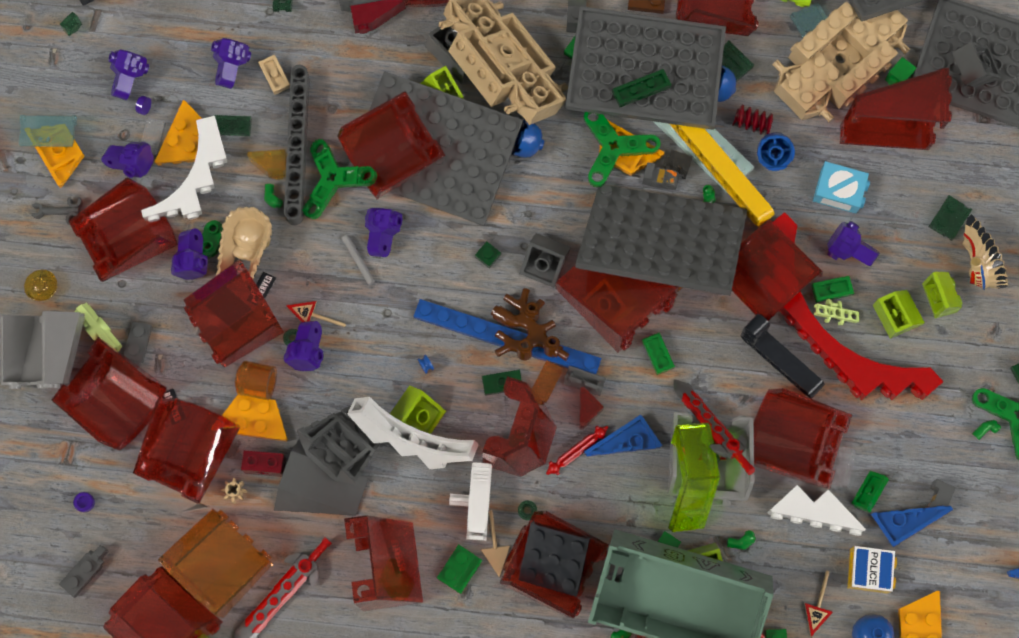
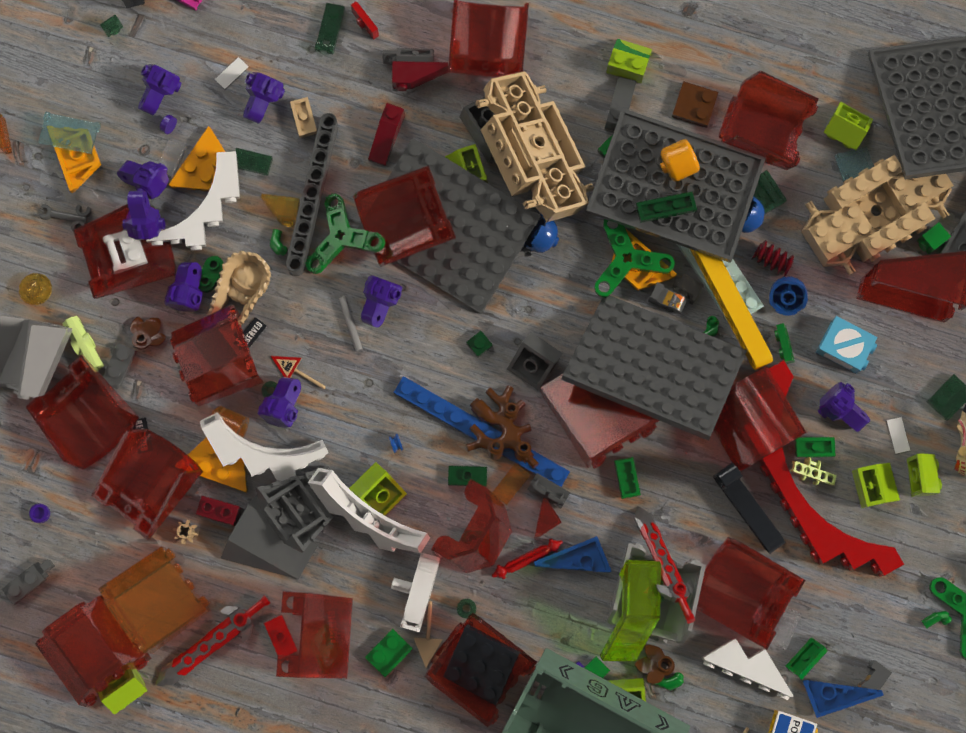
camera: 10 degrees right, 5 degrees up
(129, 228) = (131, 248): none -> white plate
(135, 197) = (142, 220): none -> dark purple piece
(159, 304) = (148, 330): none -> reddish brown plate
(196, 47) = (231, 73): none -> white sticker
(292, 403) = (282, 462): none -> white arch
(347, 573) = (280, 636): none -> red plate
(358, 74) = (386, 134): none -> dark red slope
(645, 42) = (679, 160): none -> light orange head
(721, 527) = (652, 664): none -> reddish brown plate
(777, 190) = (786, 350): none -> green plate
(909, 263) = (898, 435): none -> white sticker

